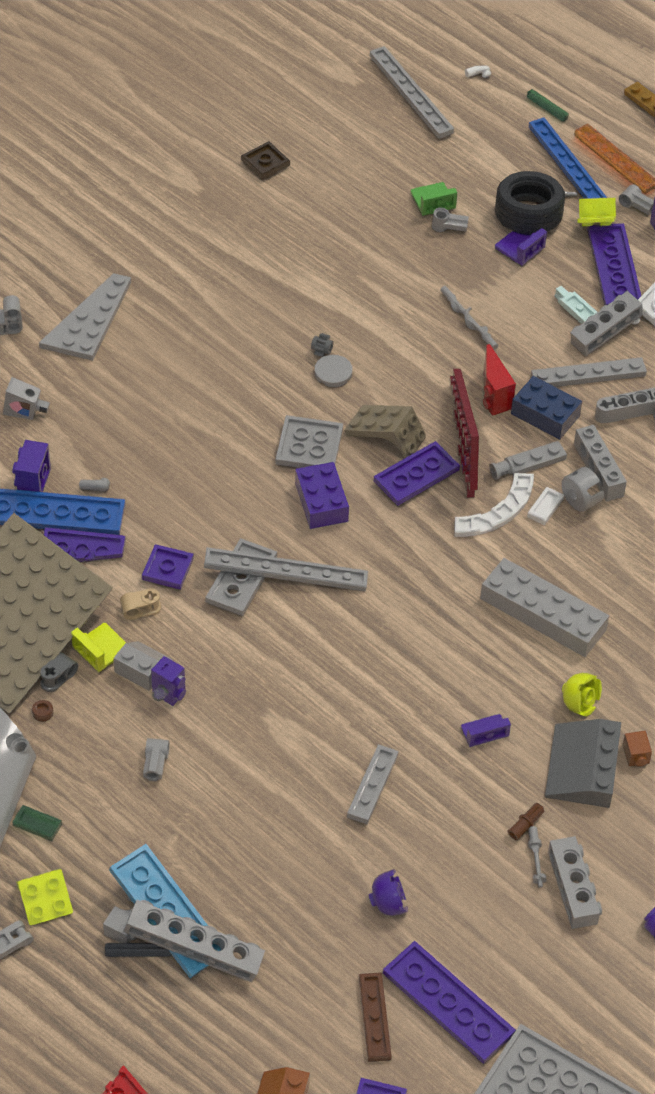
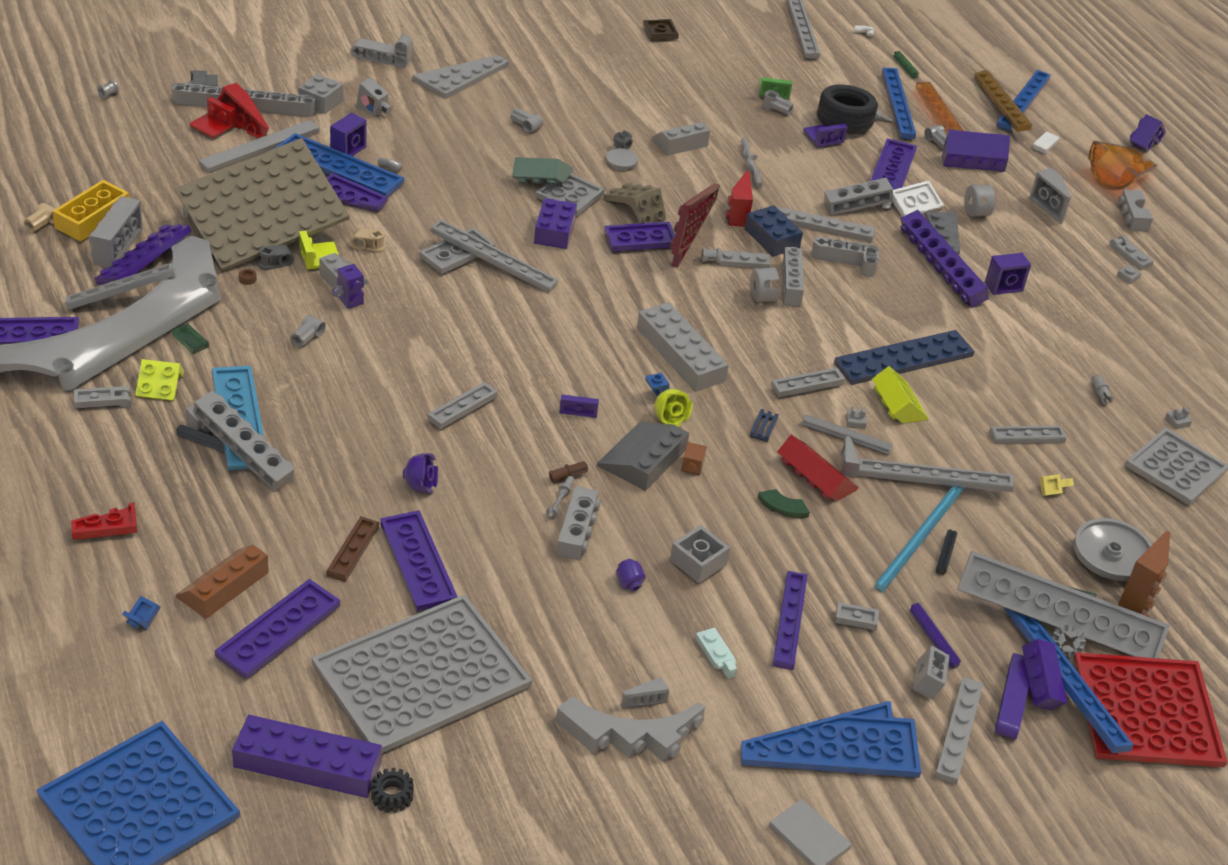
camera: 20 degrees right, 10 degrees down
(167, 566) = (406, 226): dark purple plate -> none
(208, 360) = (528, 122): none -> light grey piece
(267, 430) = (540, 170): none -> sand green slope
(379, 314) = (683, 138): none -> light grey slope
(501, 513) = (690, 283): white tile -> none
(545, 506) = (730, 290): white tile -> none
(553, 670) = (657, 383): none -> blue bracket
(574, 304) = (840, 178): light aqua hinge -> none
(597, 210) = (899, 129): neon yellow bracket -> none

